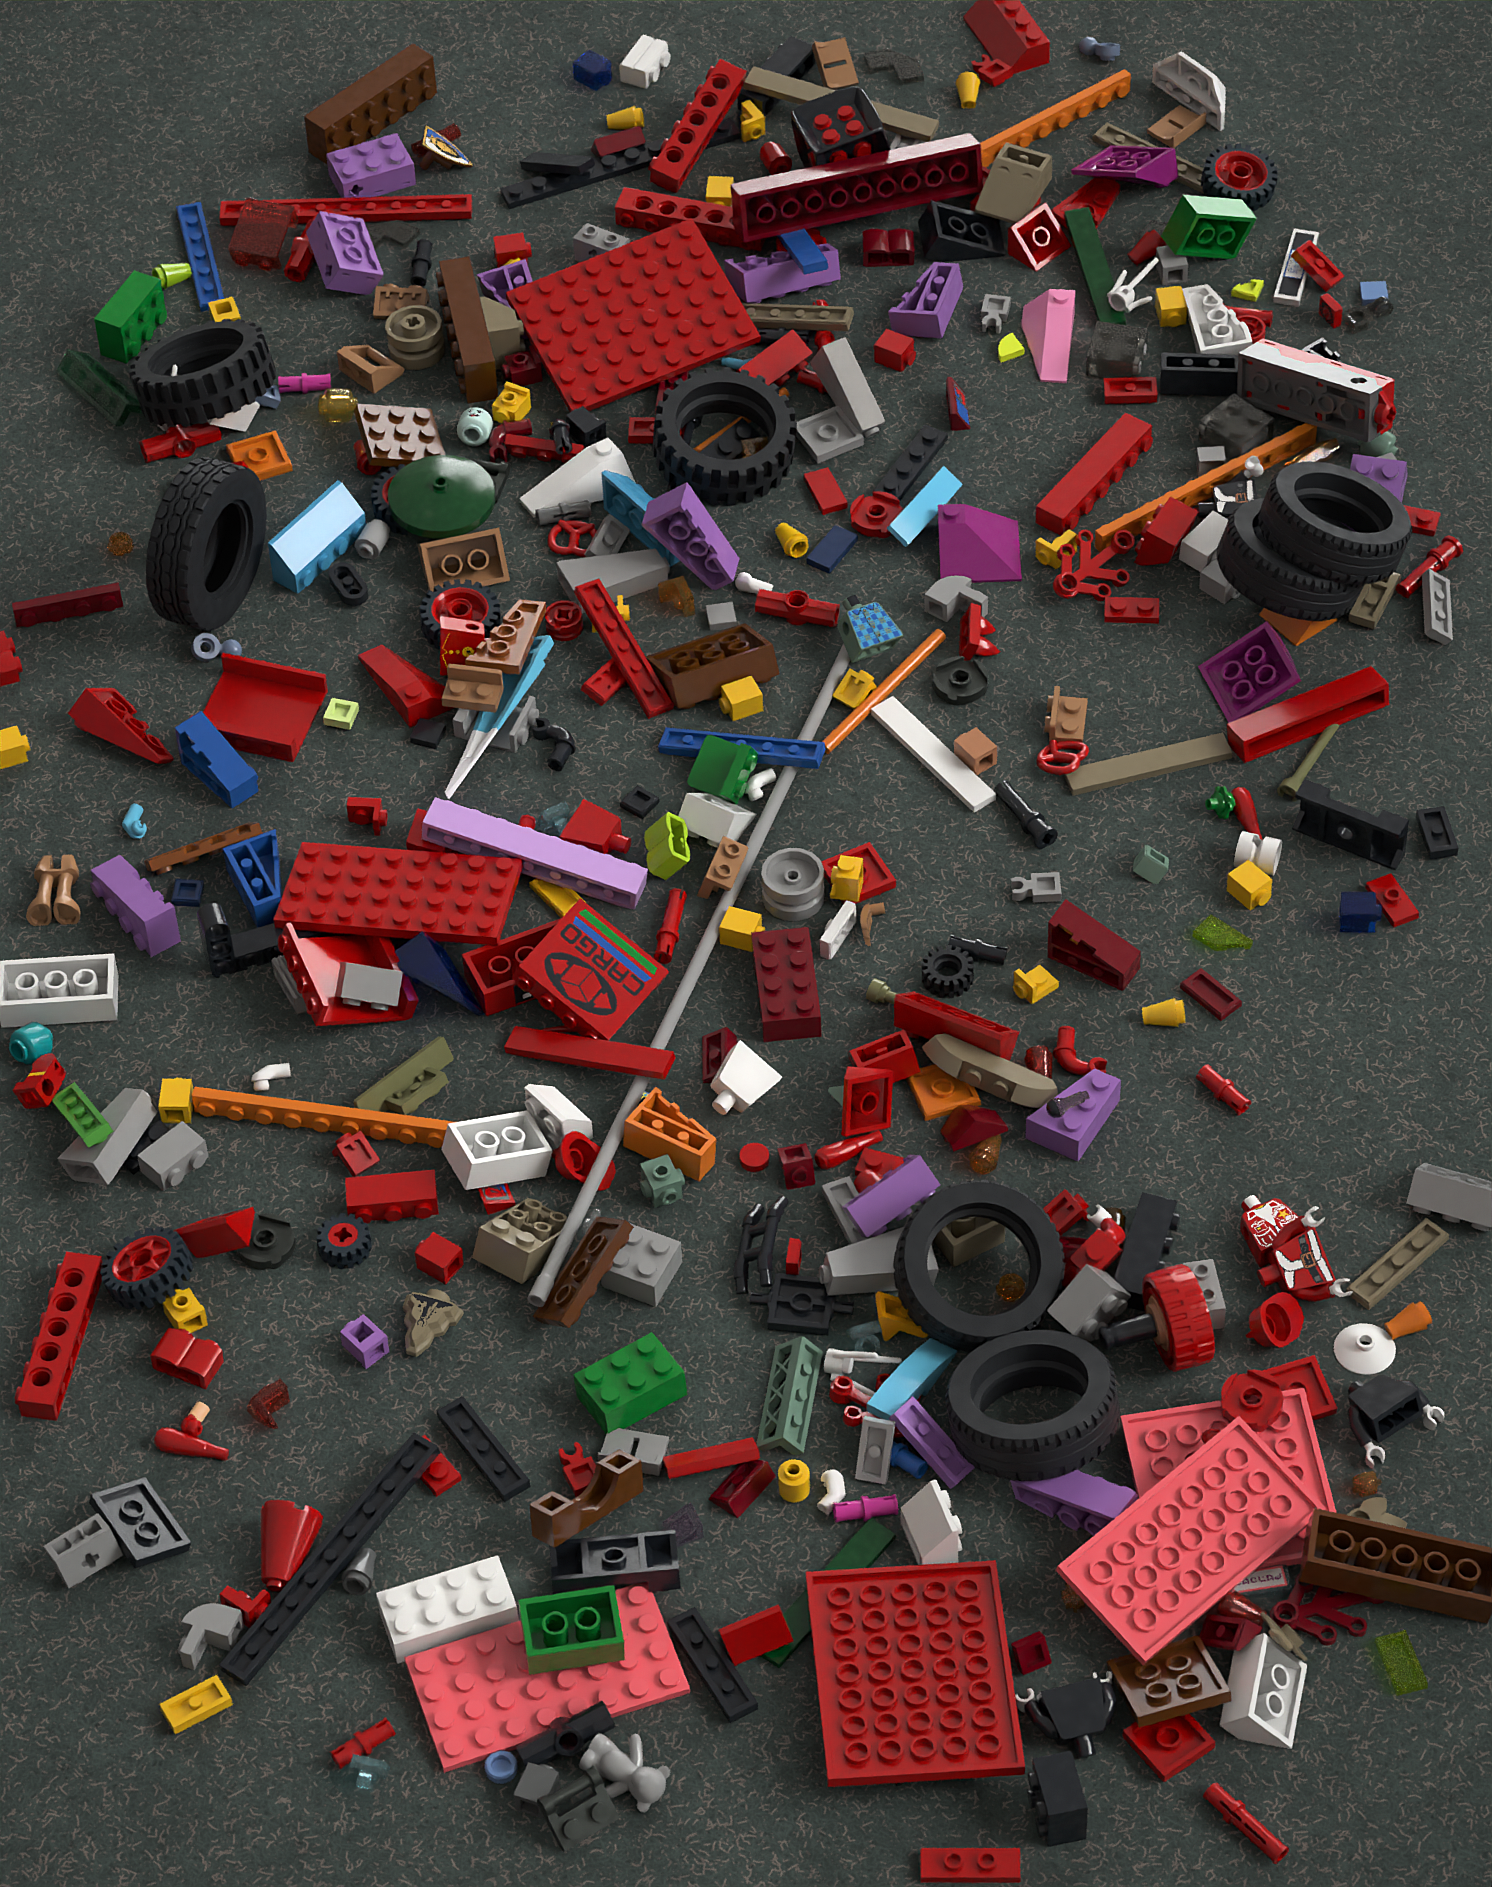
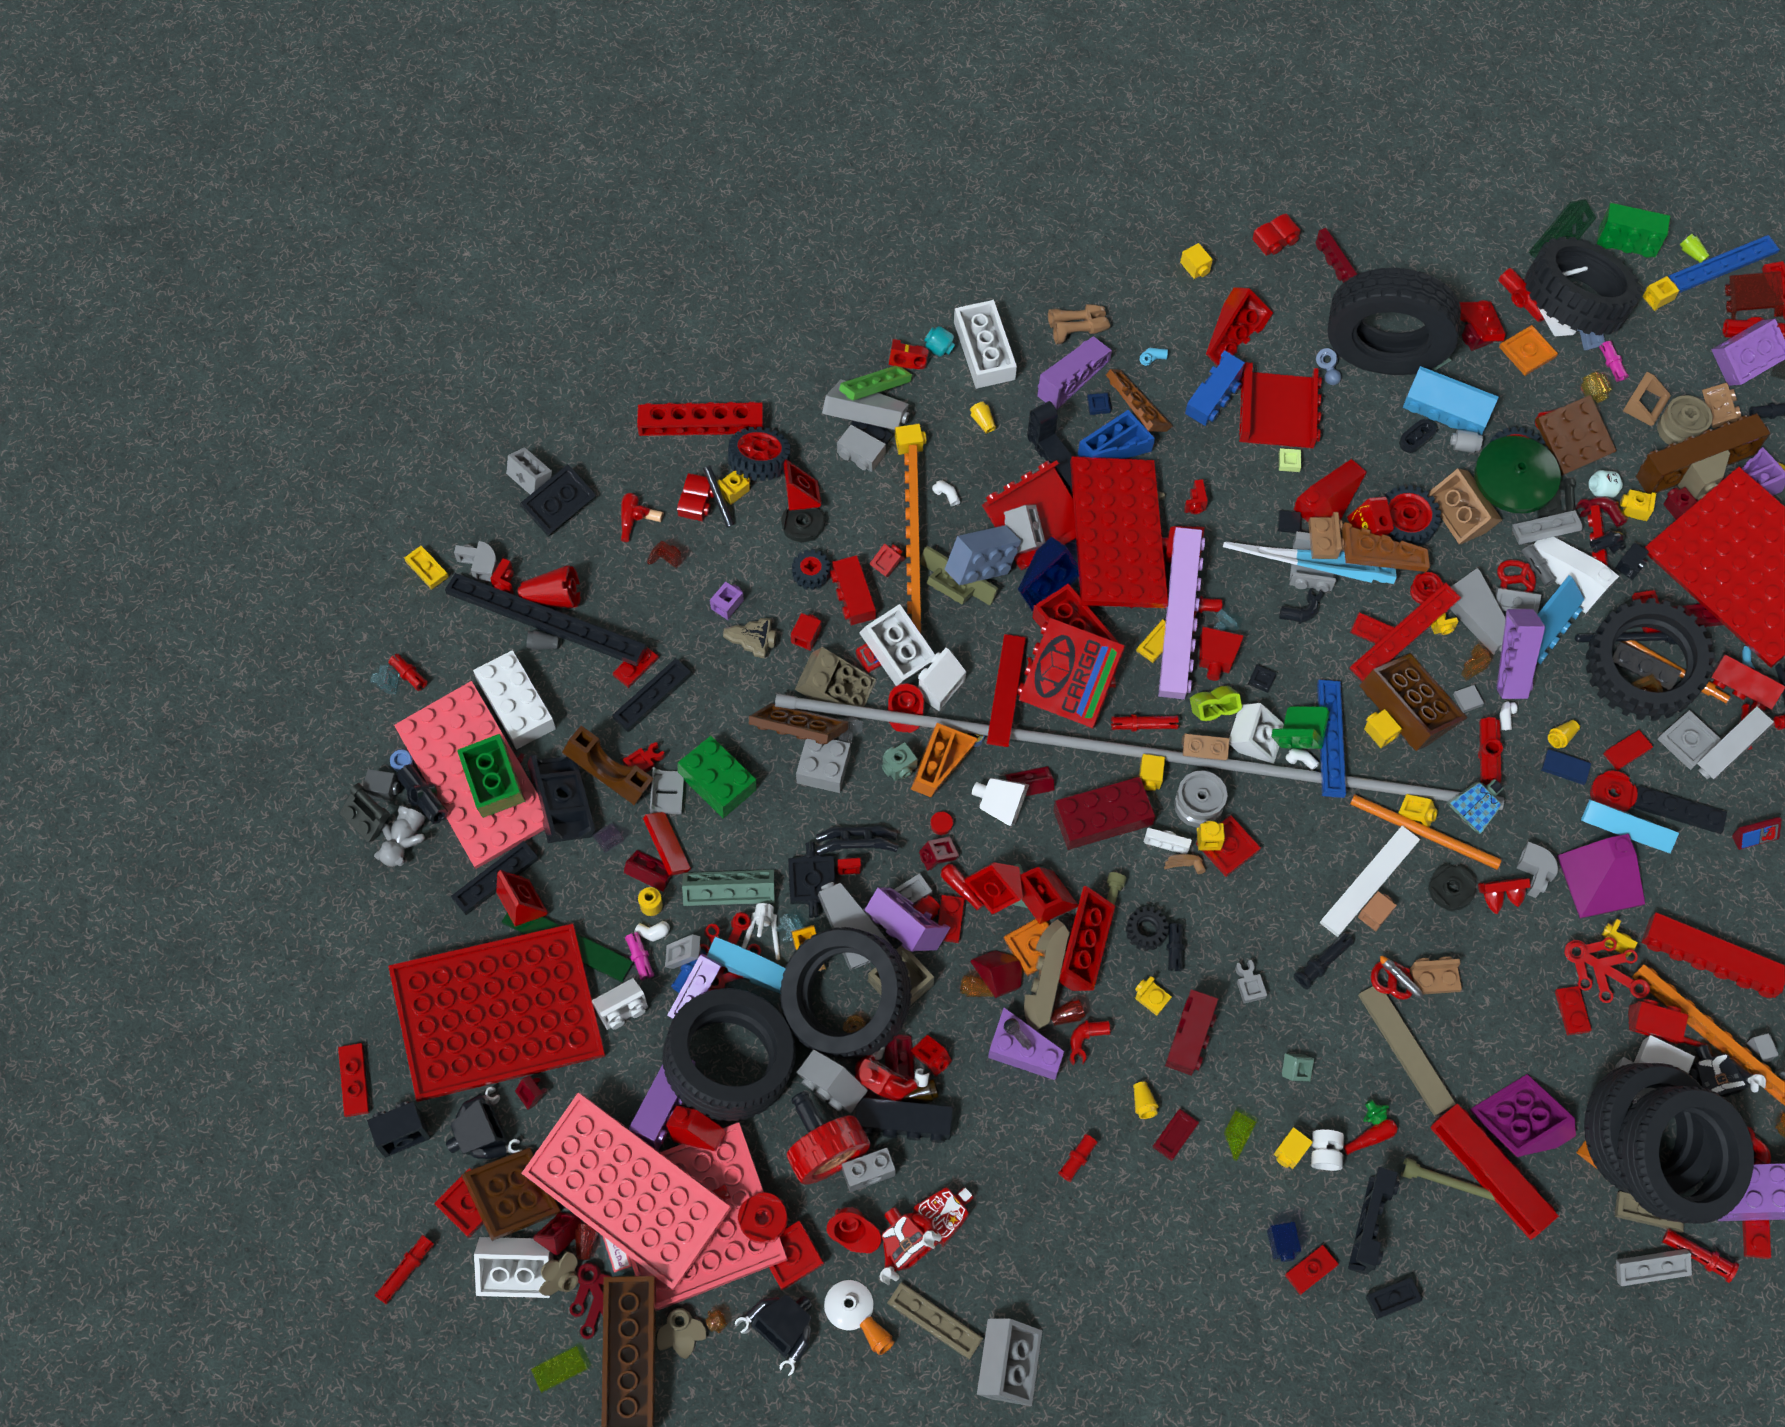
camera: 75 degrees right, 15 degrees up
(168, 1016) = (982, 415): none -> yellow cone
(198, 1325) = (718, 496): none -> black bar
(398, 1031) = (982, 555): none -> sand blue brick
(517, 491) = (1547, 527): none -> light grey plate
(1063, 744) = (1401, 977): none -> flat silver piece
(1124, 1458) = (694, 1129): none -> red slope

